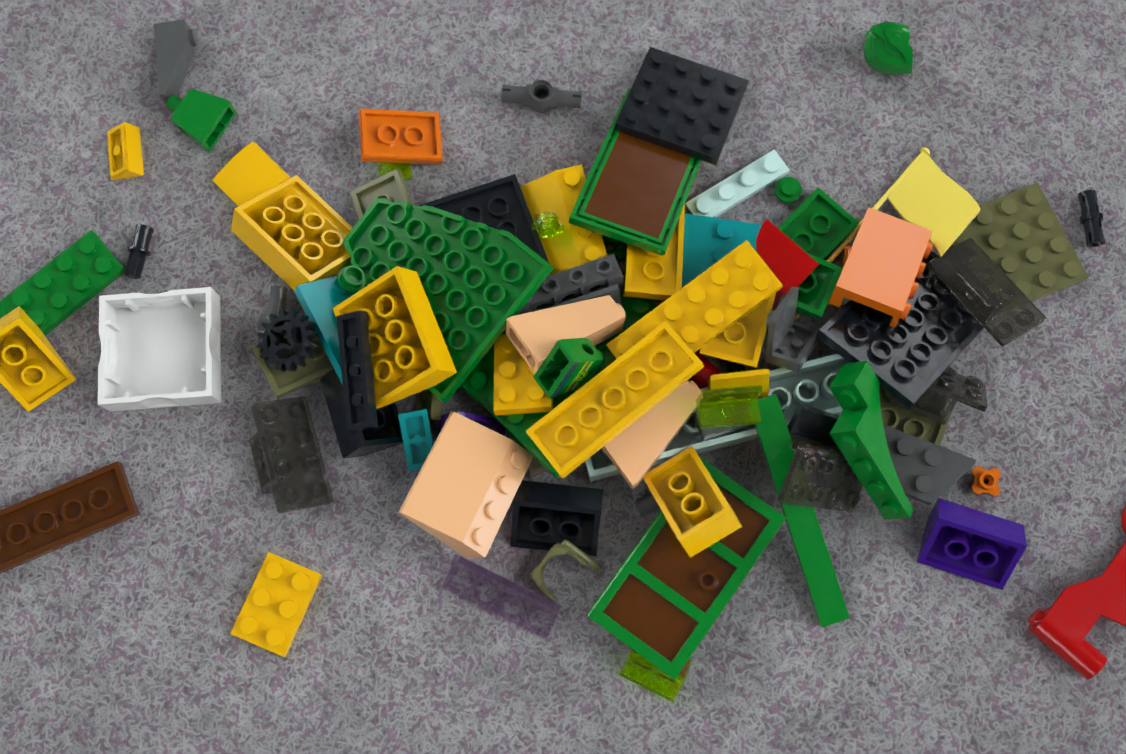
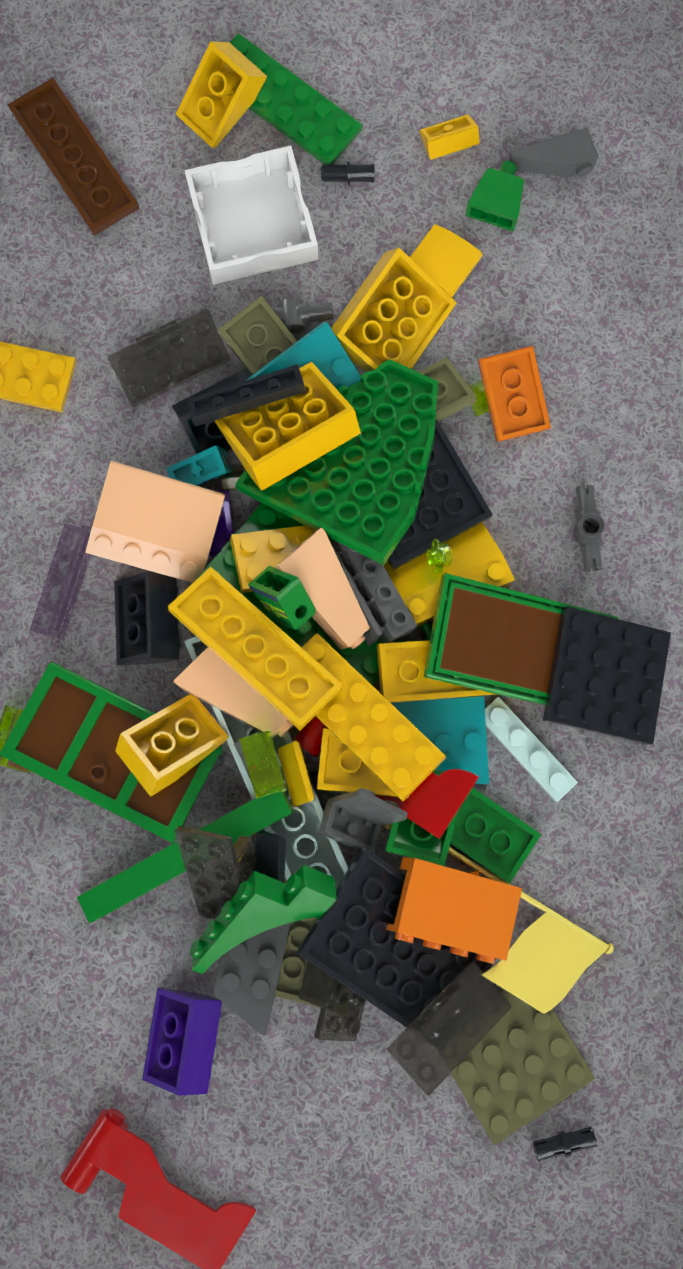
camera: 75 degrees right, 5 degrees up
(277, 348) = (271, 326): black gear -> none
(351, 279) = (346, 374): green plate -> none
(562, 548) = (113, 627): olive helmet -> none
(788, 189) = (534, 803): green plate -> none
(978, 485) = (244, 1044): orange plate -> none

